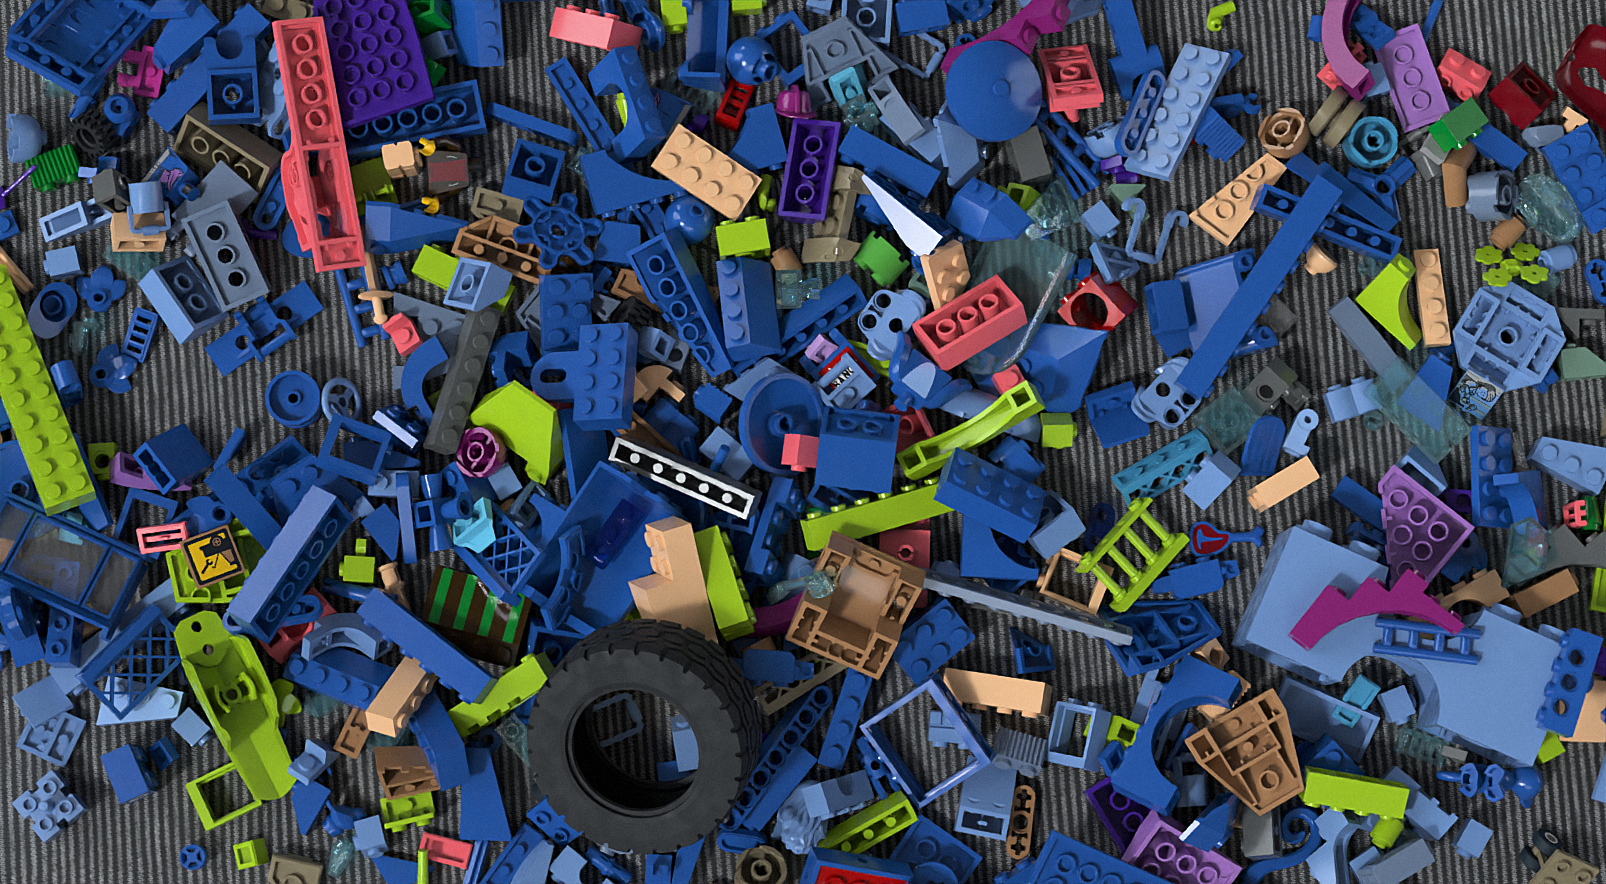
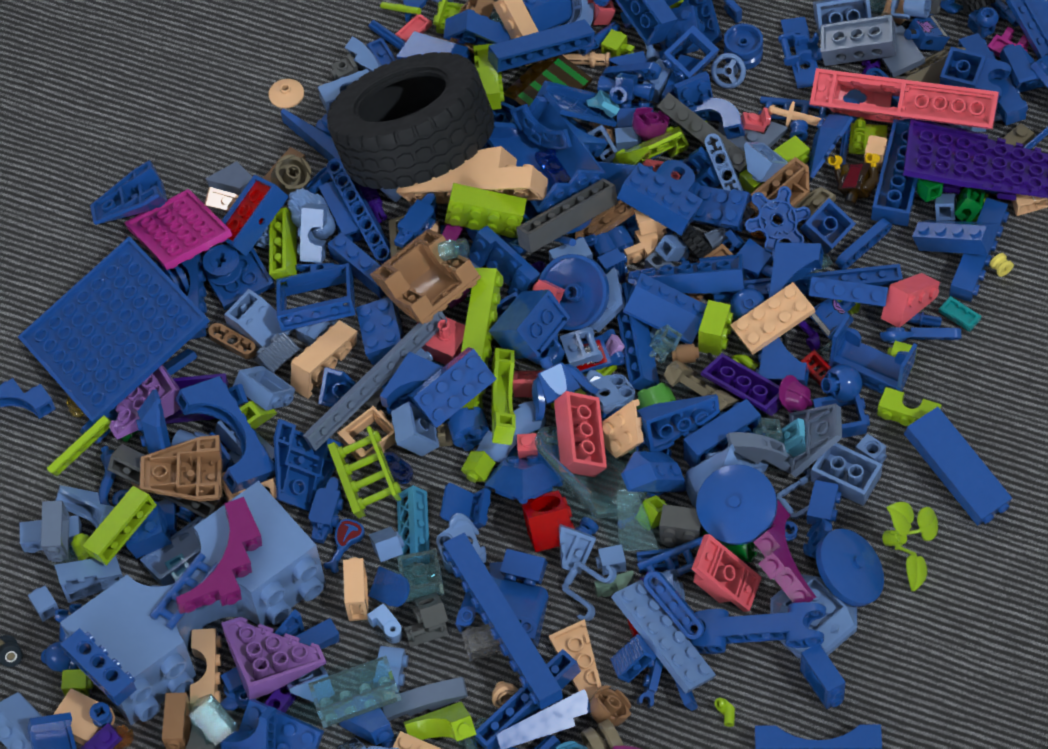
camera: 130 degrees right, 25 degrees down
(506, 328) = (725, 166): none -> medium blue beam

